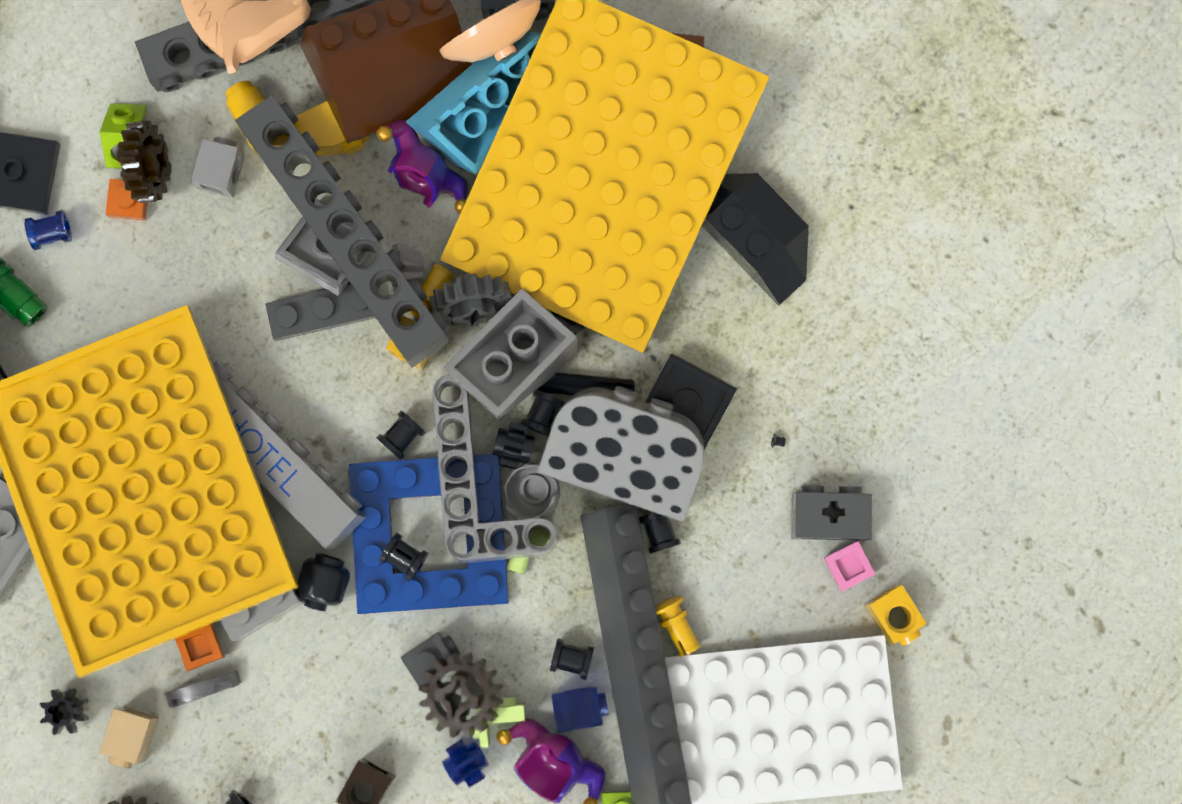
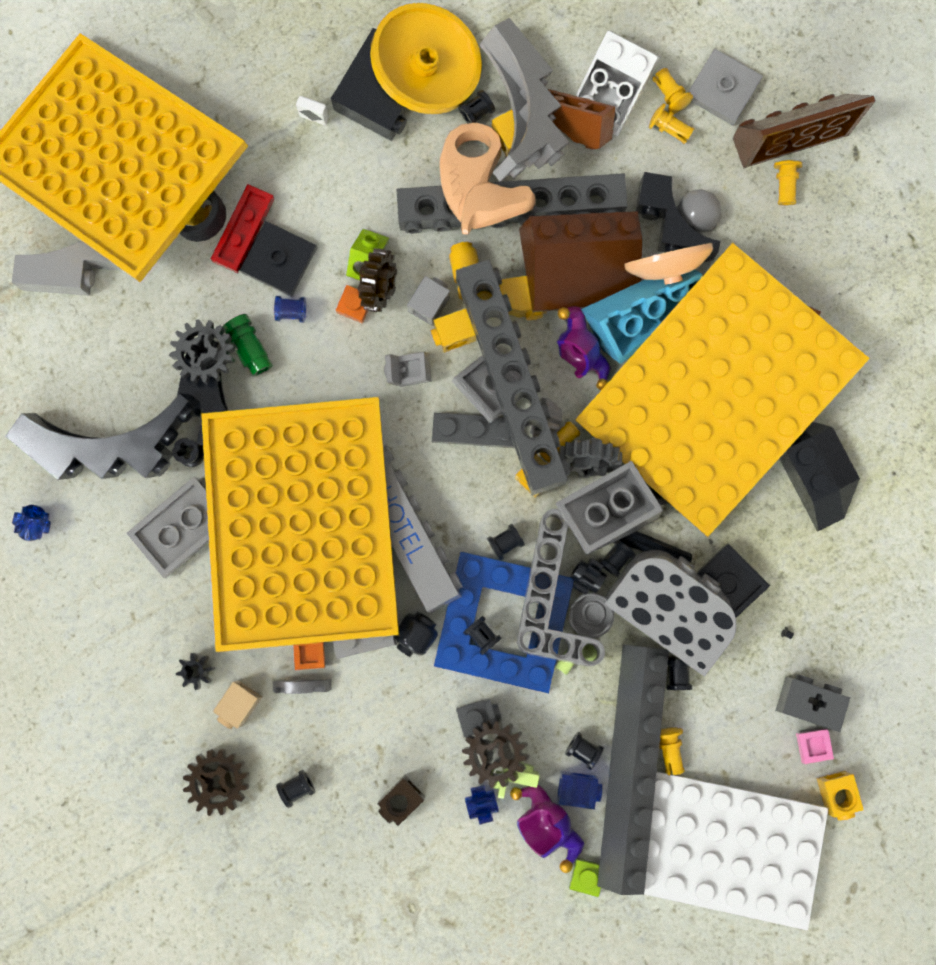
camera: 20 degrees right, 0 degrees up
(216, 260) = (408, 369): none -> light grey bracket
(258, 196) = (453, 331): none -> yellow brick

